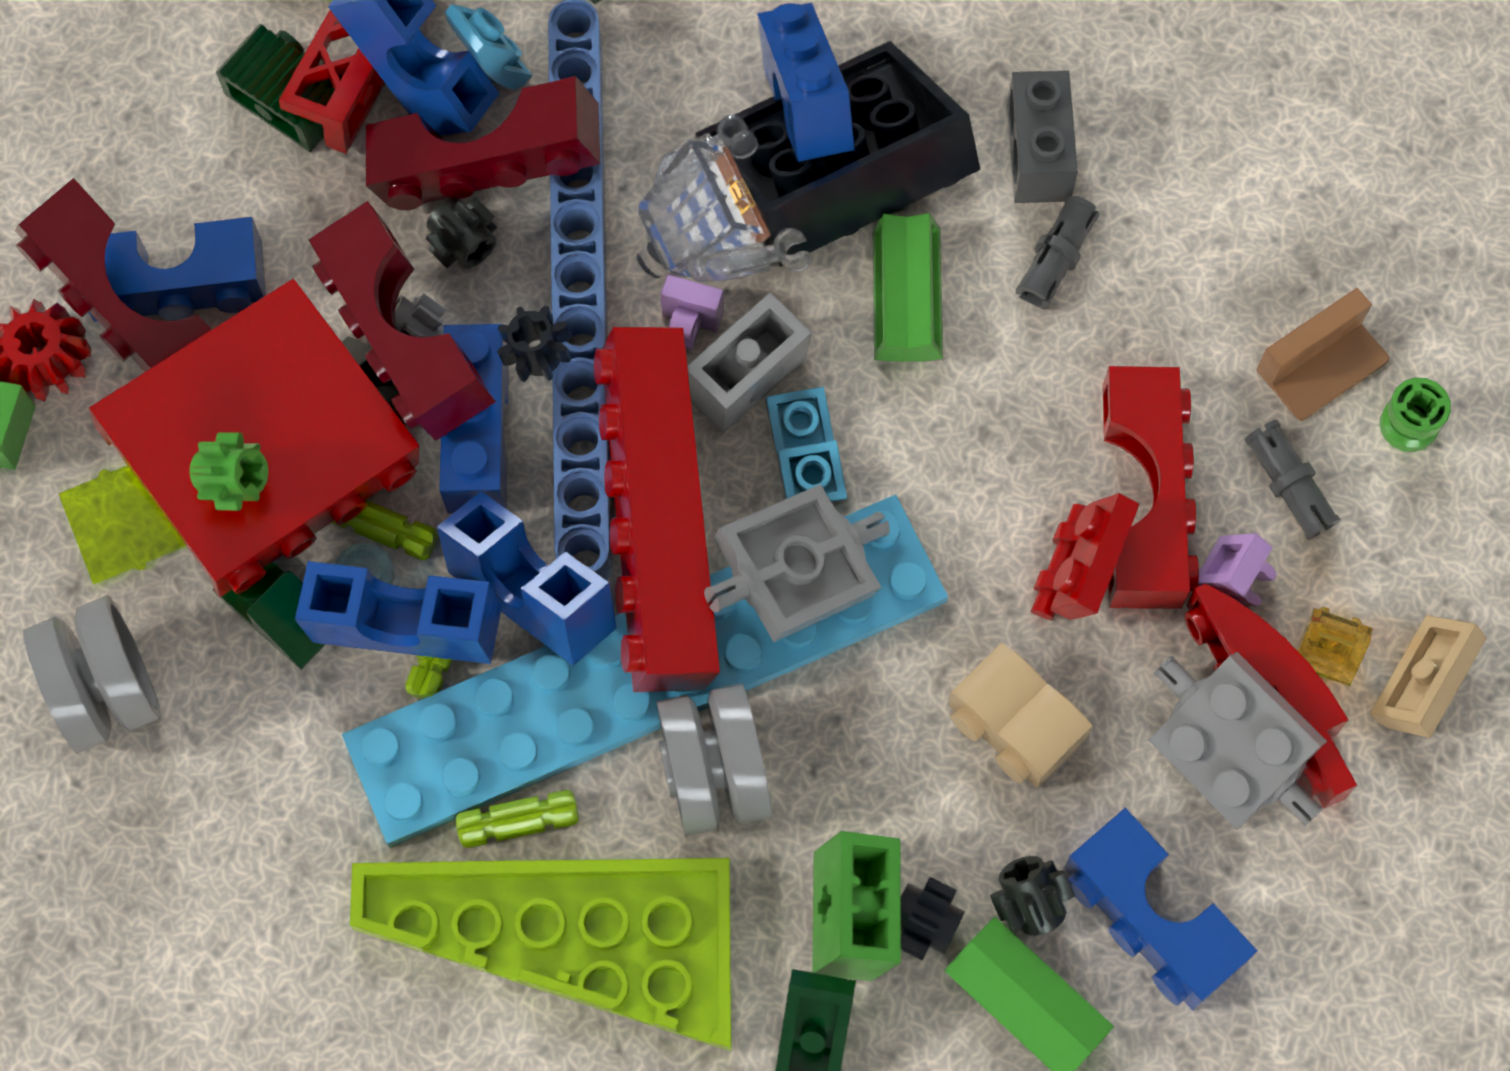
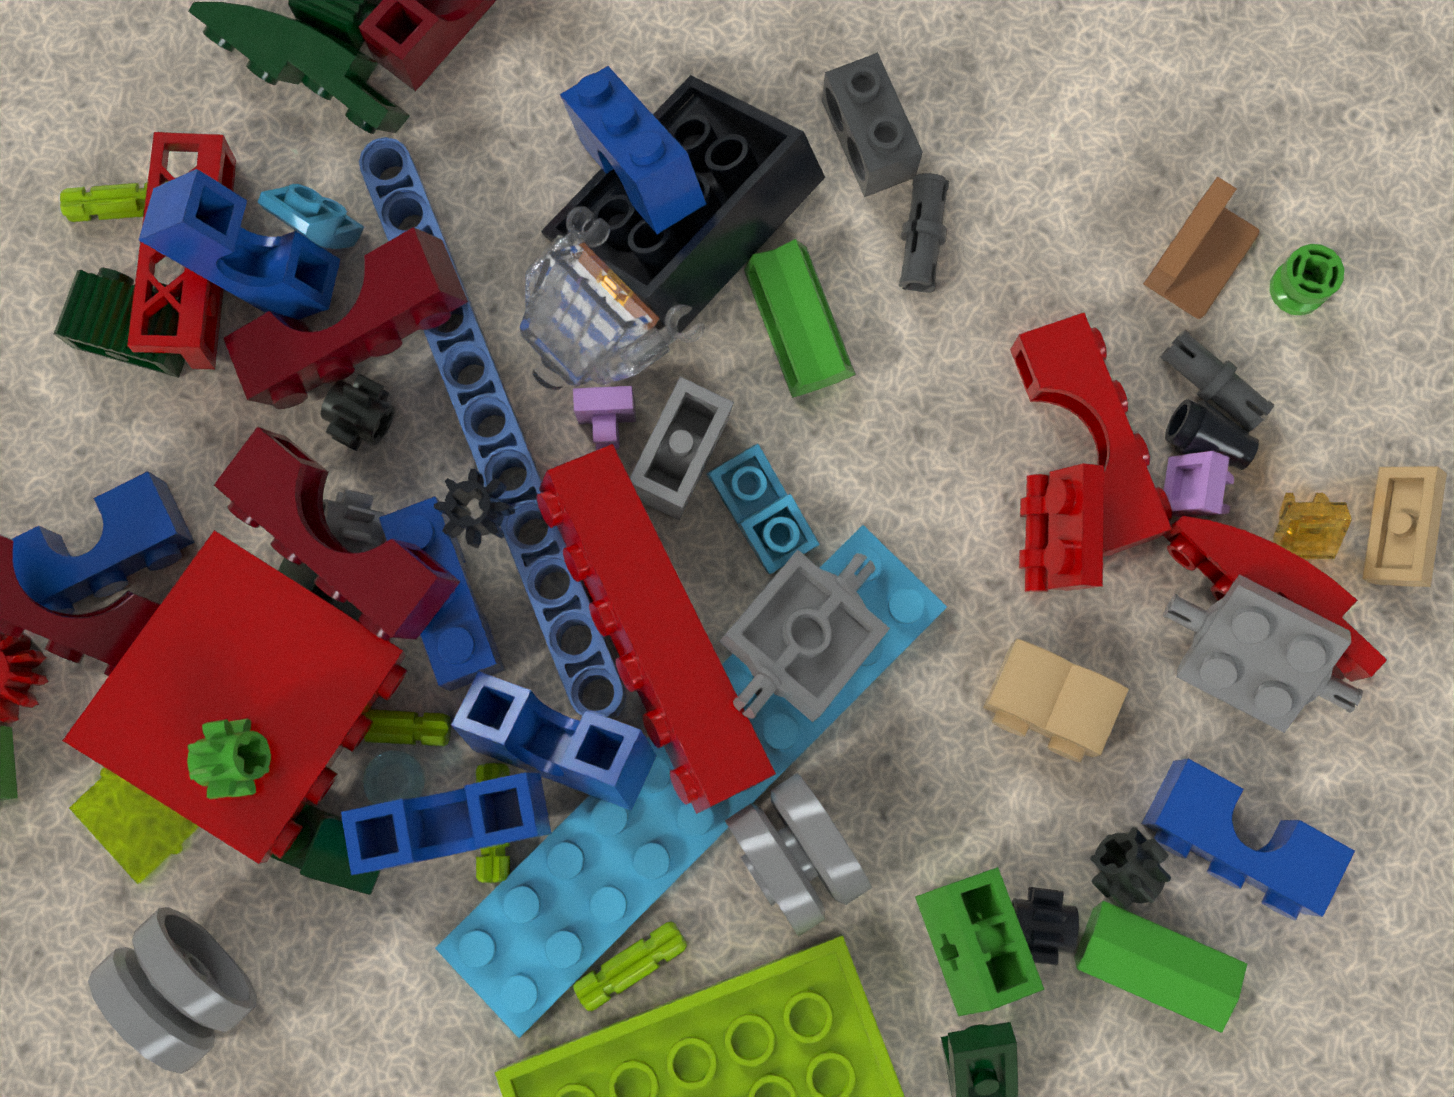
camera: 20 degrees left, 10 degrees up
(1265, 515) = (1203, 429): none -> black cone

